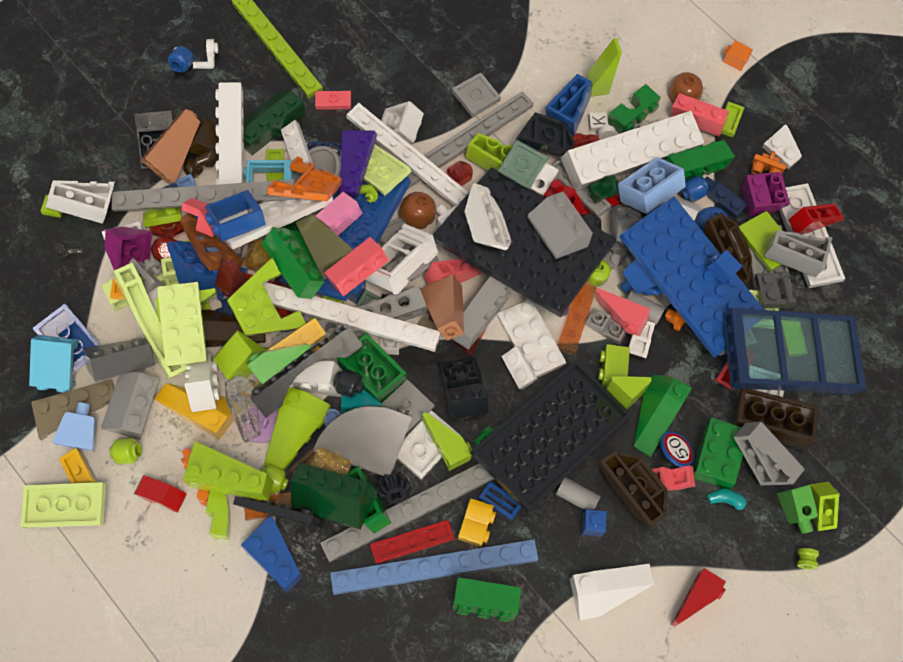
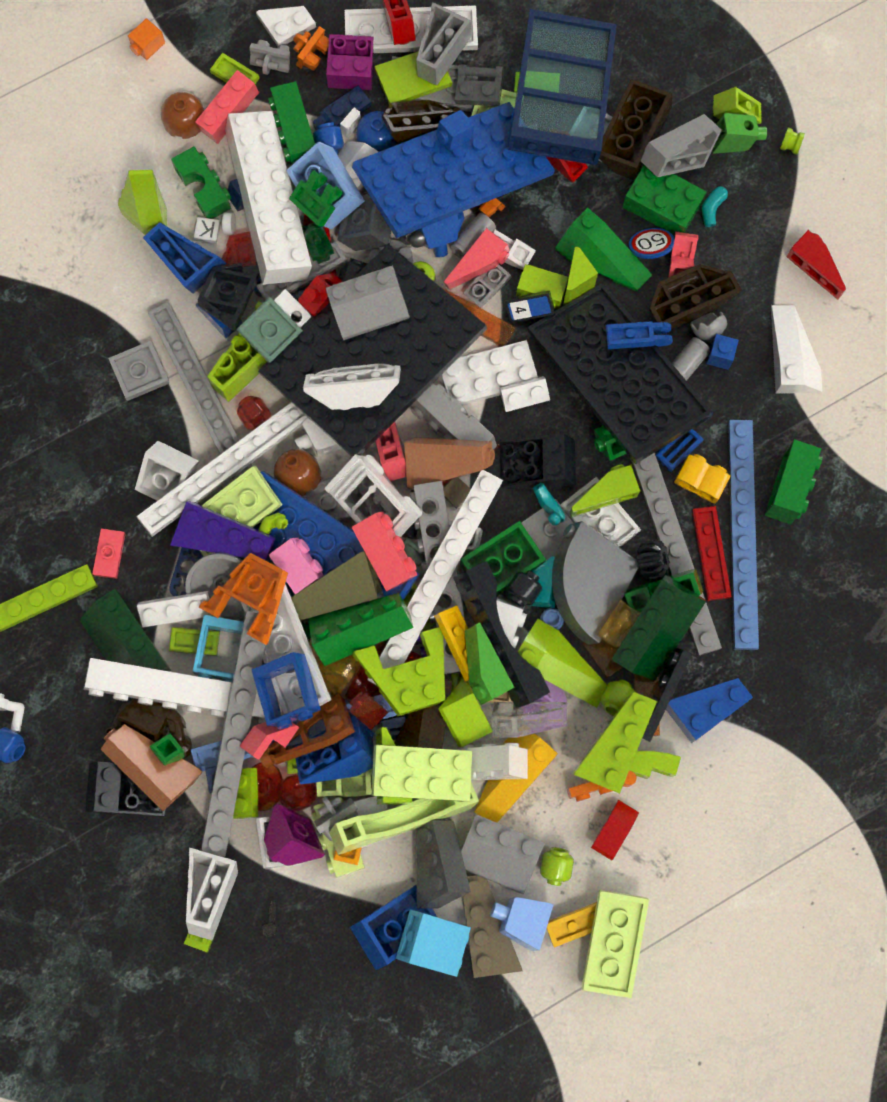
camera: 75 degrees left, 10 degrees up
(184, 153) = (167, 750): none -> green slope
(428, 399) = (549, 504): none -> teal arm
(587, 442) = (638, 335): none -> blue hinge
(594, 358) = (530, 306): none -> tile
(615, 508) = (708, 326): none -> light grey hair
(636, 174) = (312, 203): none -> green plate
(714, 201) = (350, 123): none -> white tile
(749, 139) = (270, 58): none -> light grey hips

